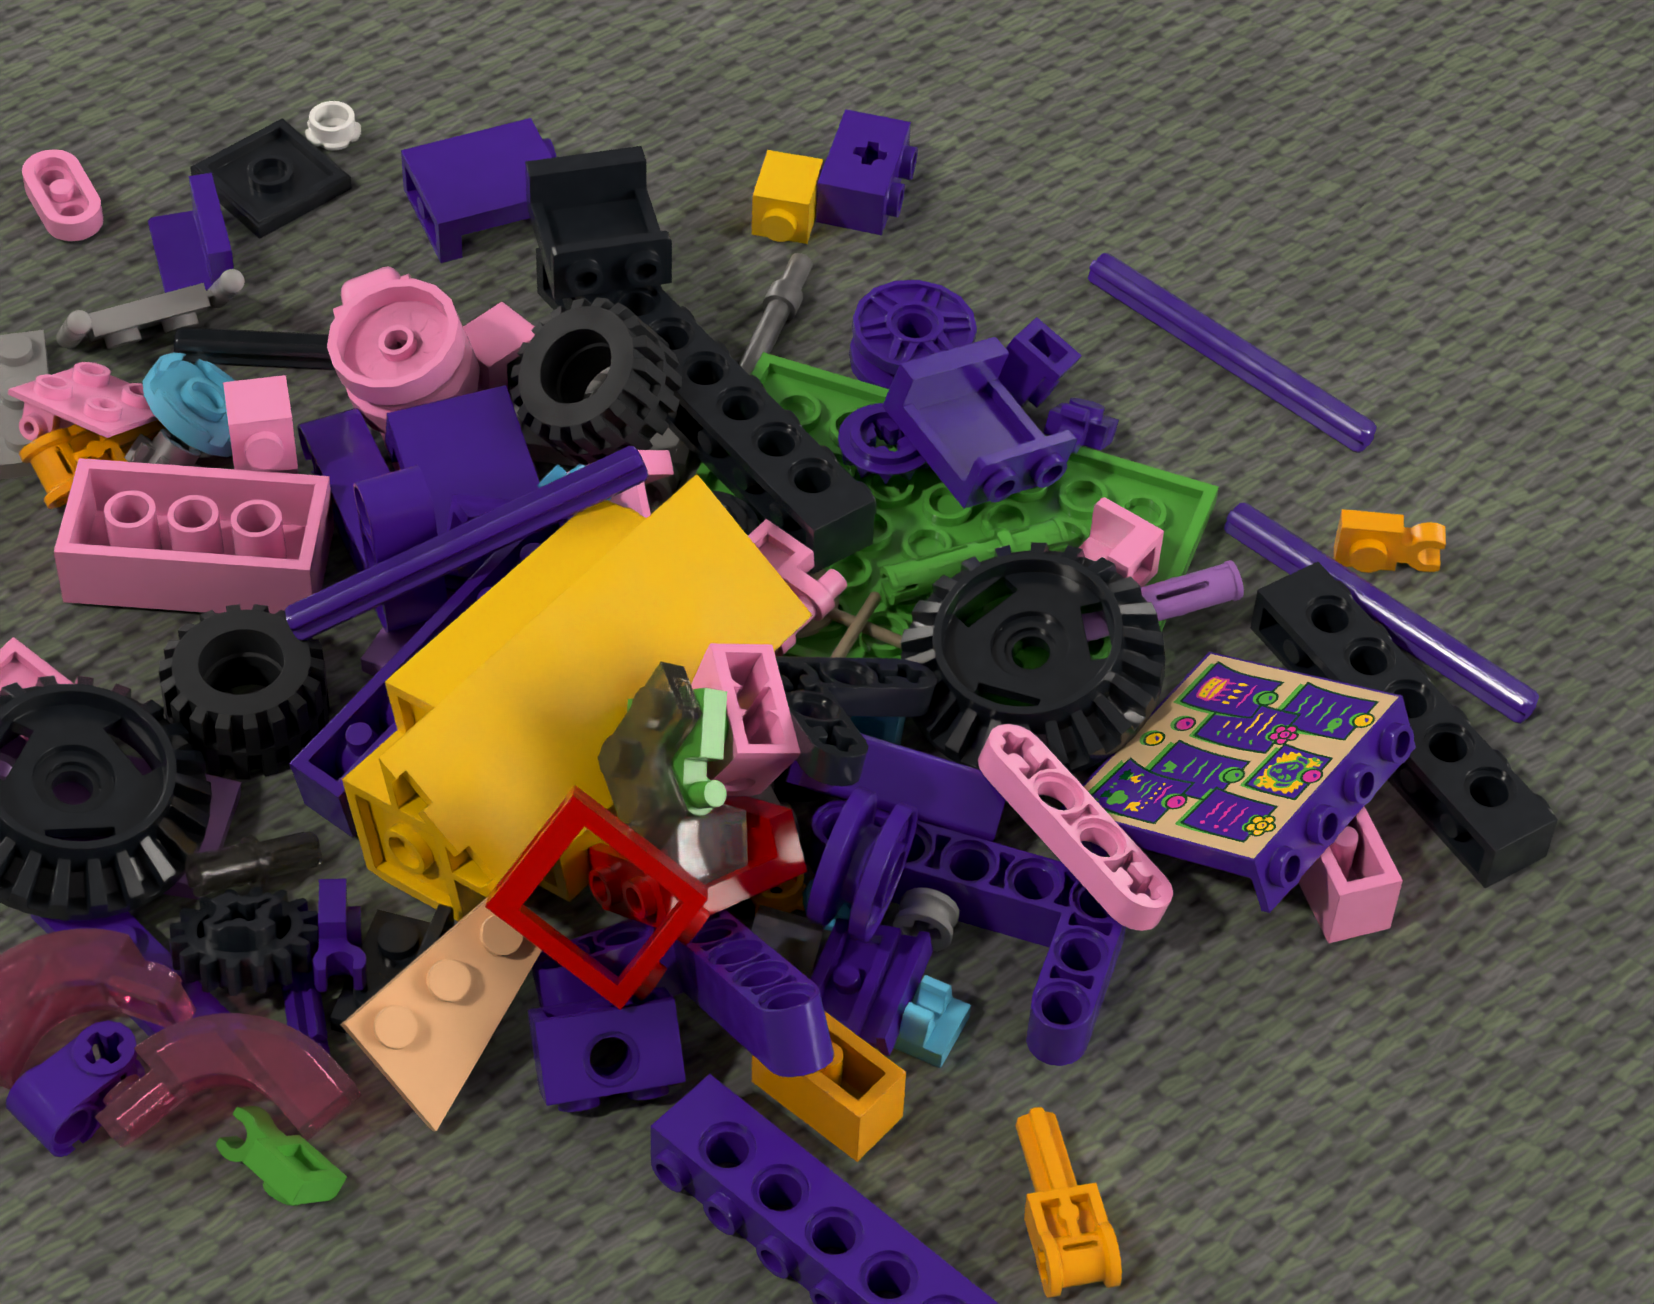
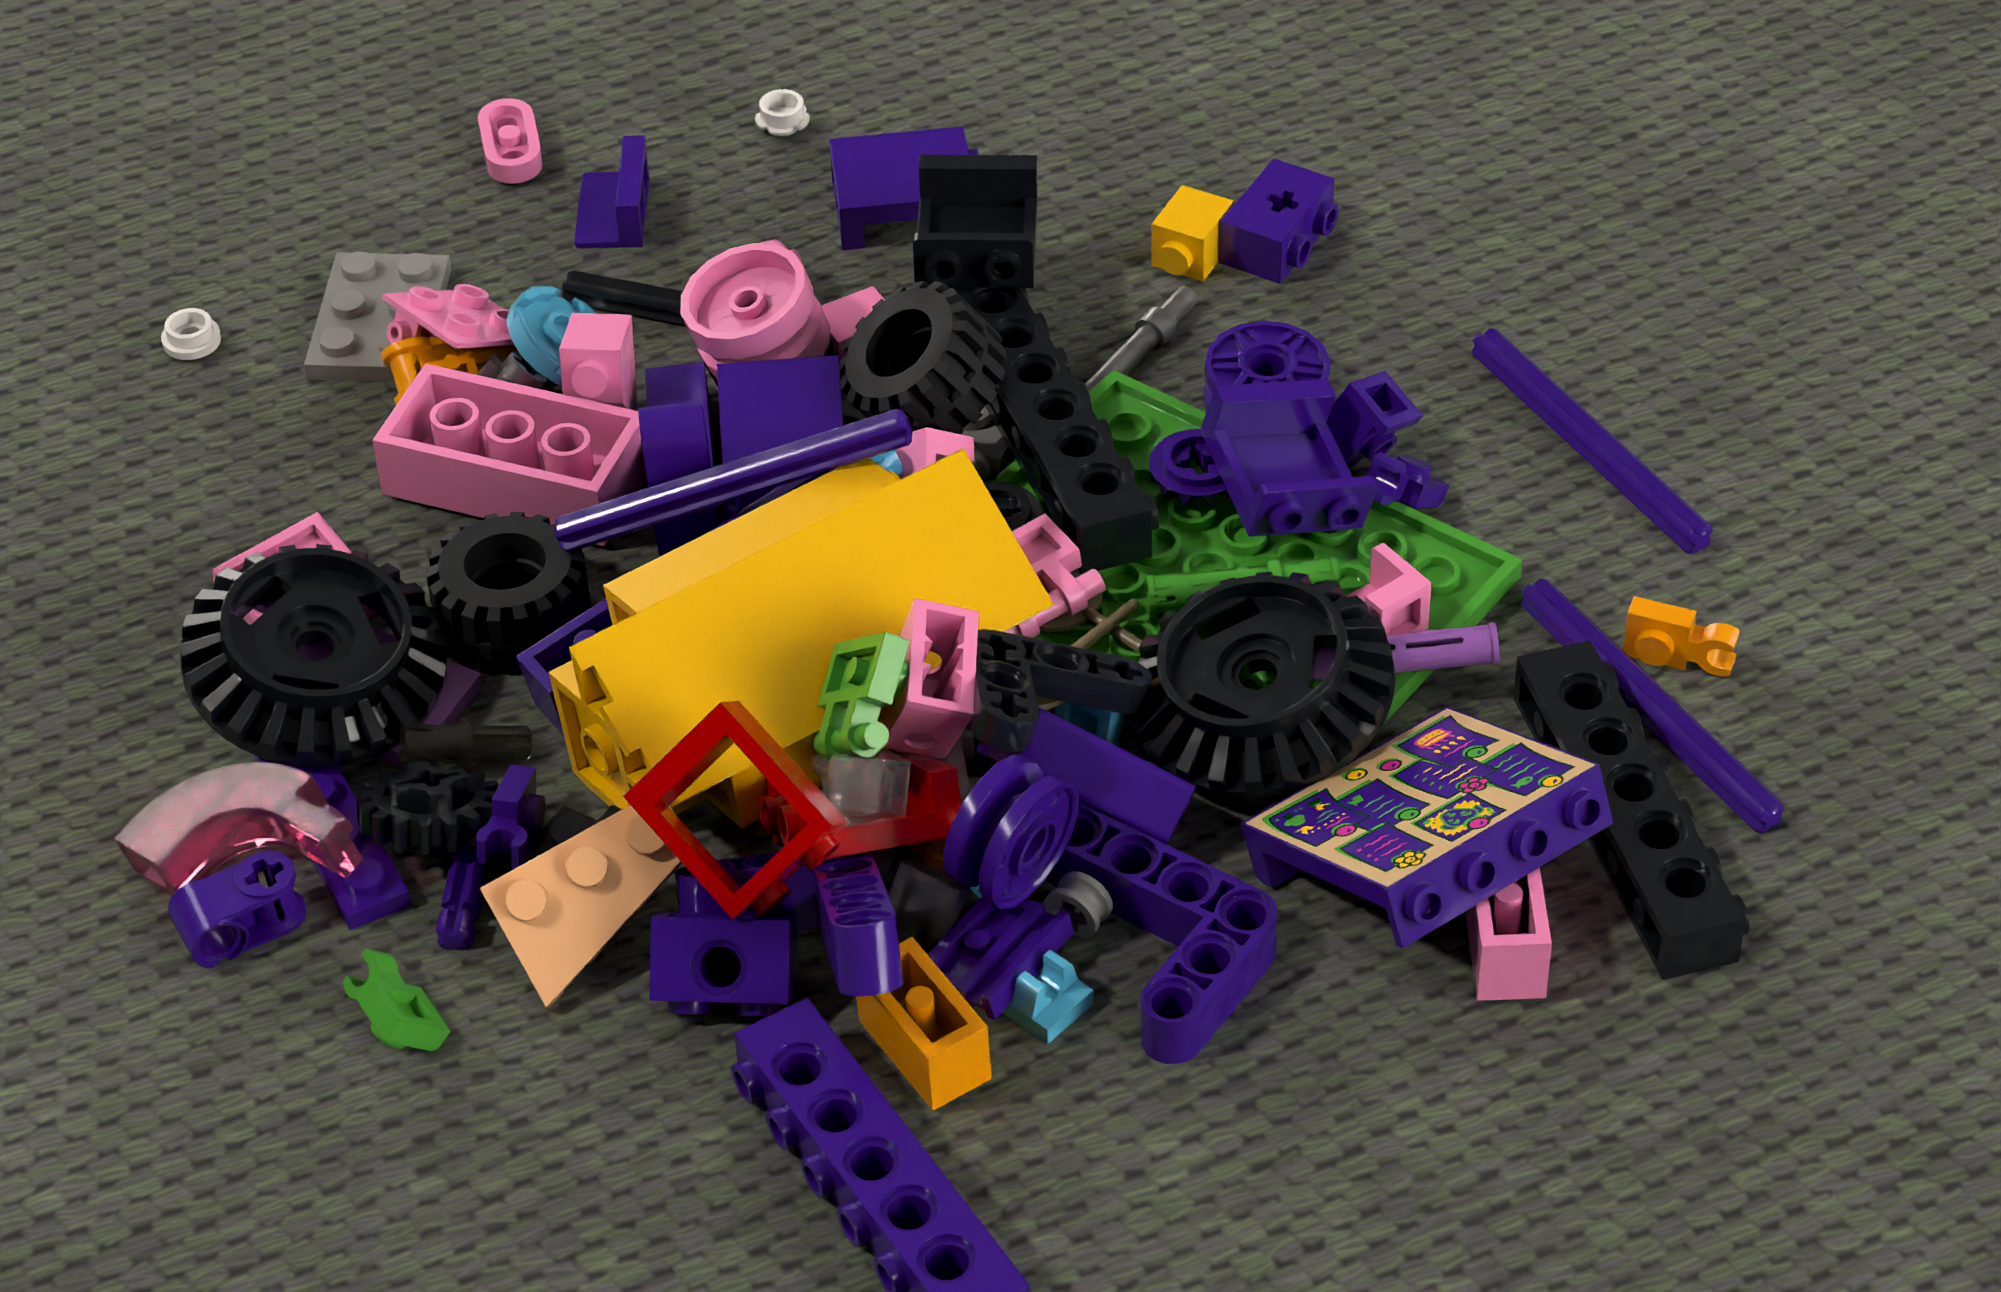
camera: 20 degrees right, 5 degrees down
(172, 309) = (521, 258): light grey plate -> none
(229, 1052) = (365, 896): clear pink arch -> none
(273, 178) = (710, 152): black tile -> none
(640, 753) = (820, 692): clear smoke plate -> none
(1064, 1220) = (1111, 1192): light orange connector -> none
(1125, 882) = (1251, 835): bright pink beam -> none

